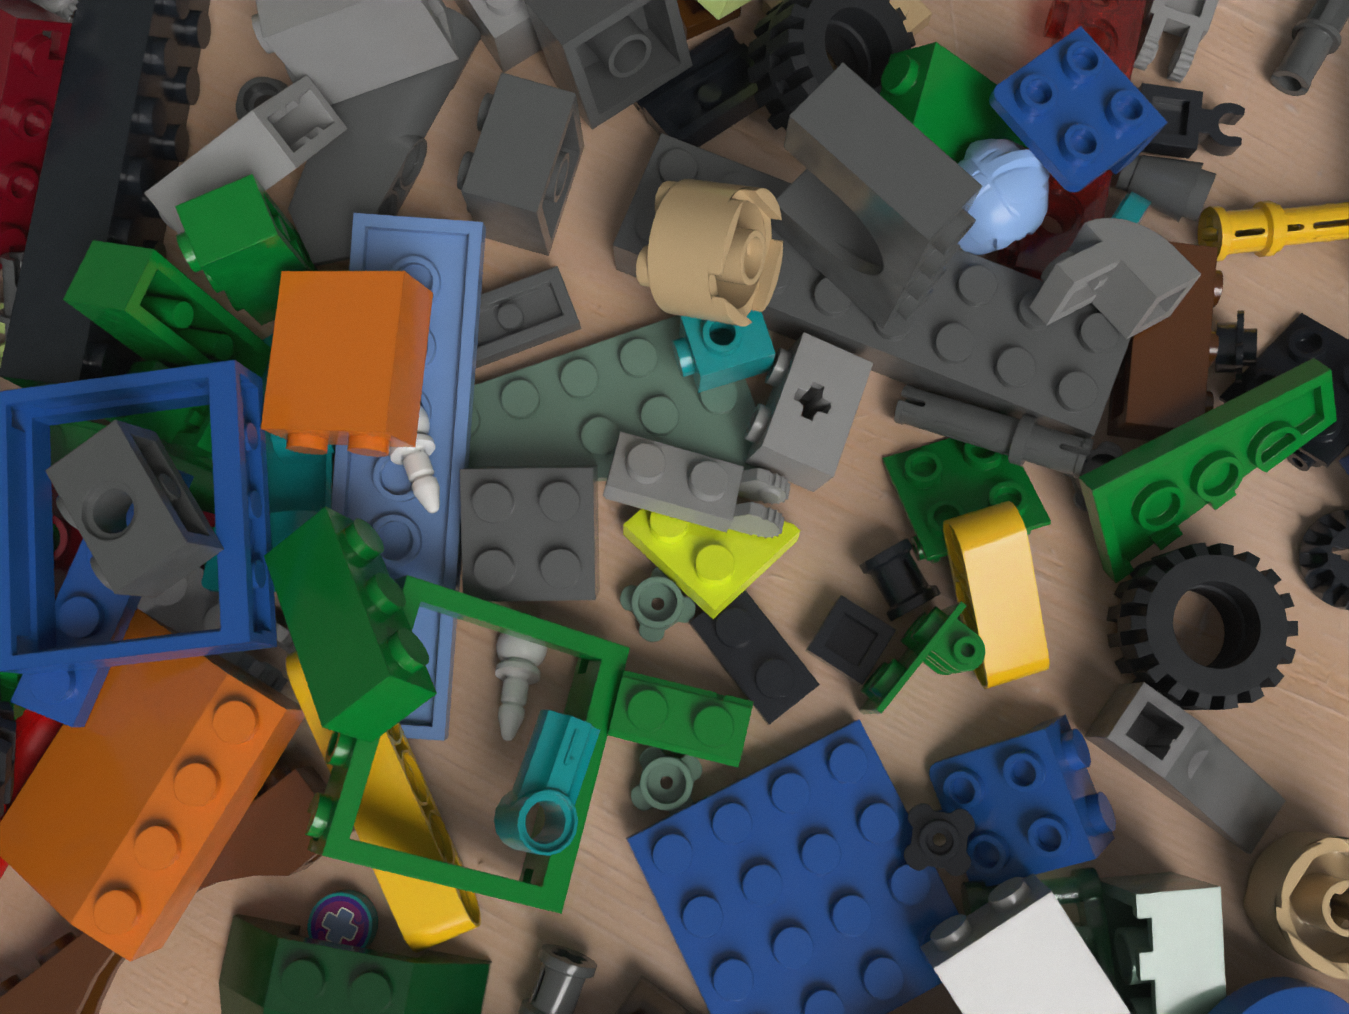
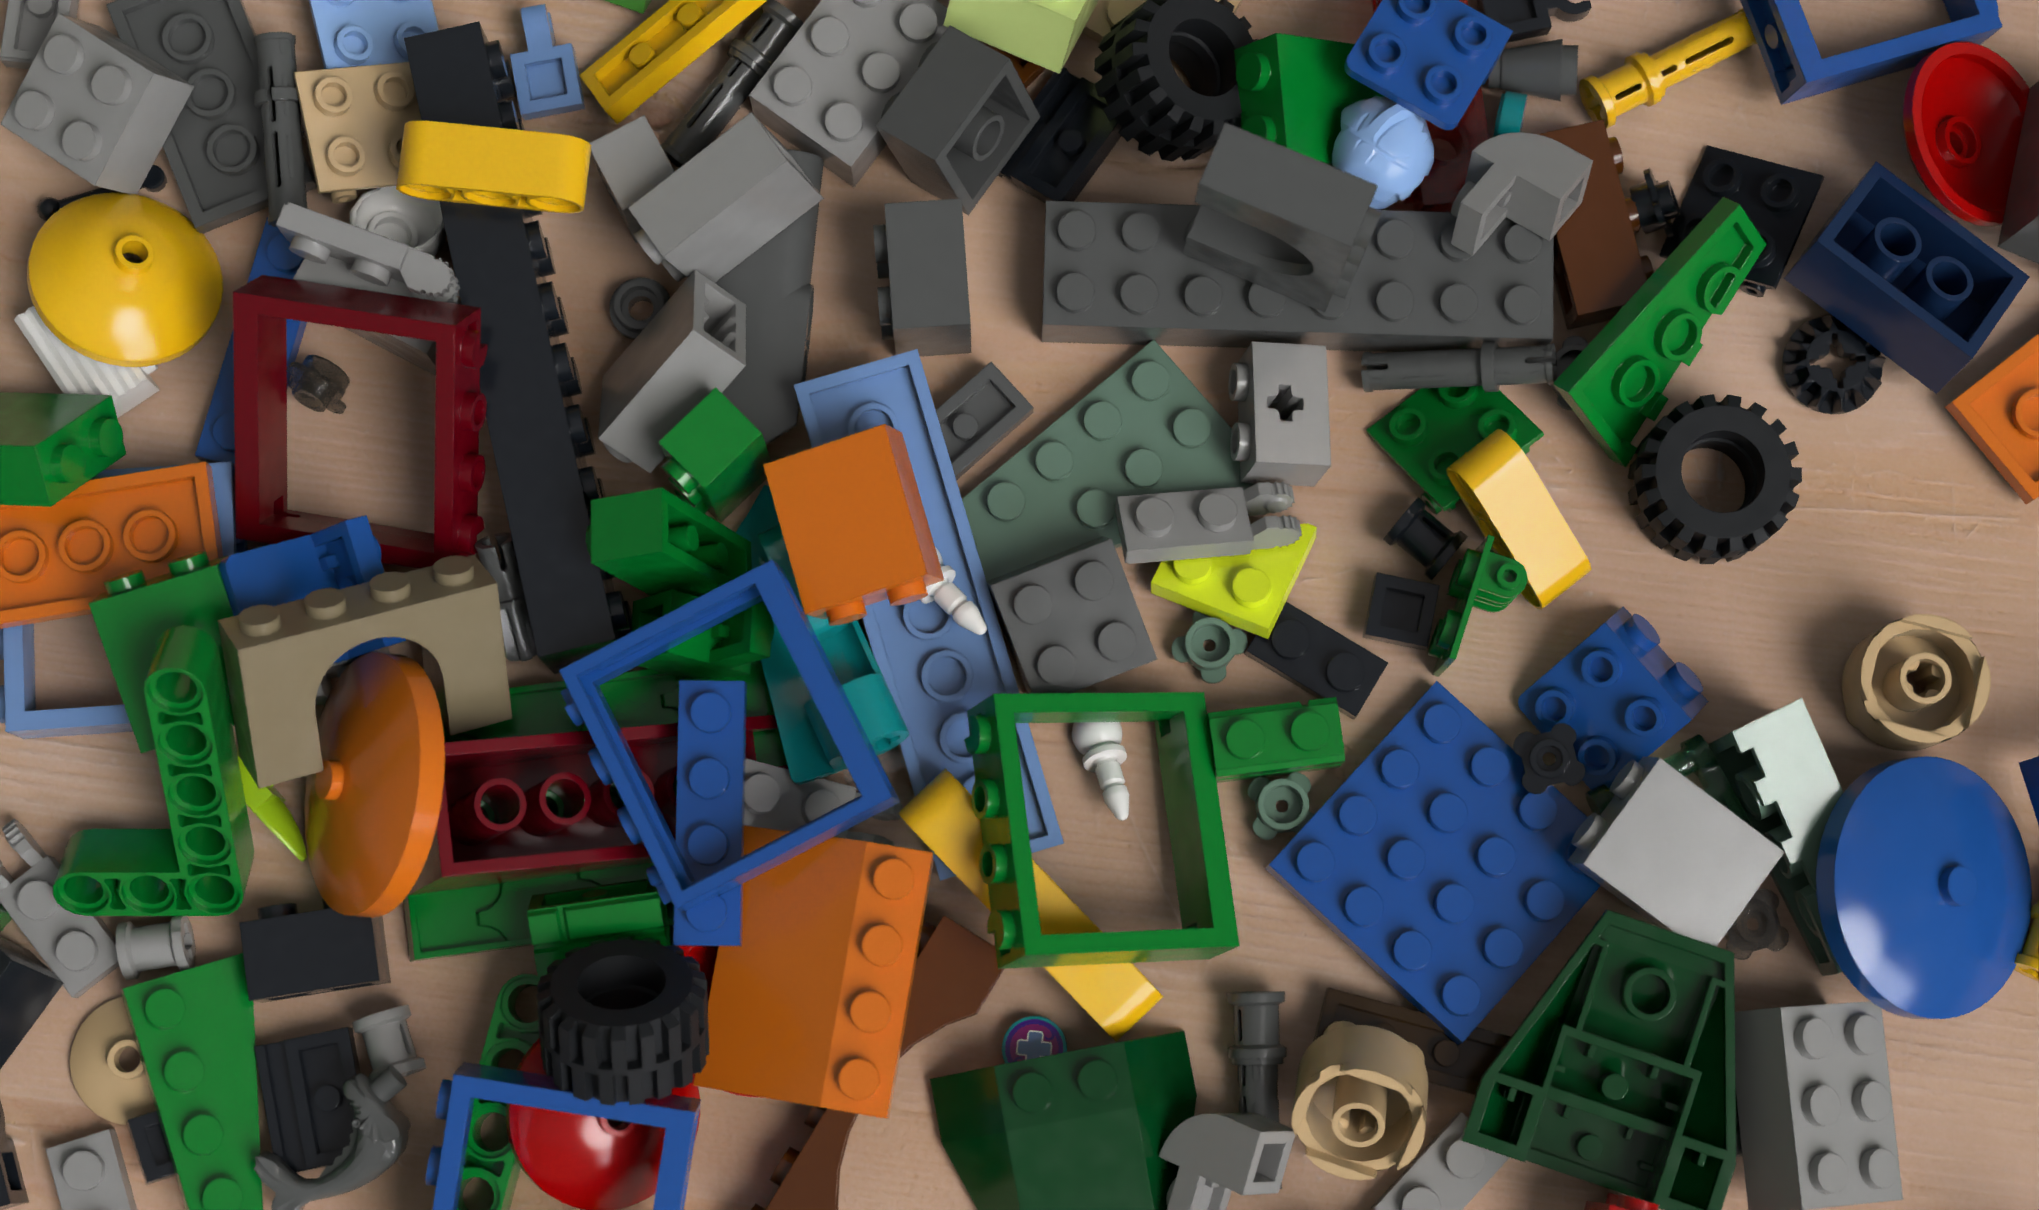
camera: 25 degrees left, 0 degrees up
(167, 529) = (788, 731): dark grey brick -> none
(349, 626) = (967, 750): green brick -> none
(551, 776) = (1187, 830): teal piece -> none
(712, 250) = (1149, 303): tan brick -> none
(721, 351) = (1182, 379): teal brick -> none
(1185, 763) = (1746, 608): flat silver slope -> none

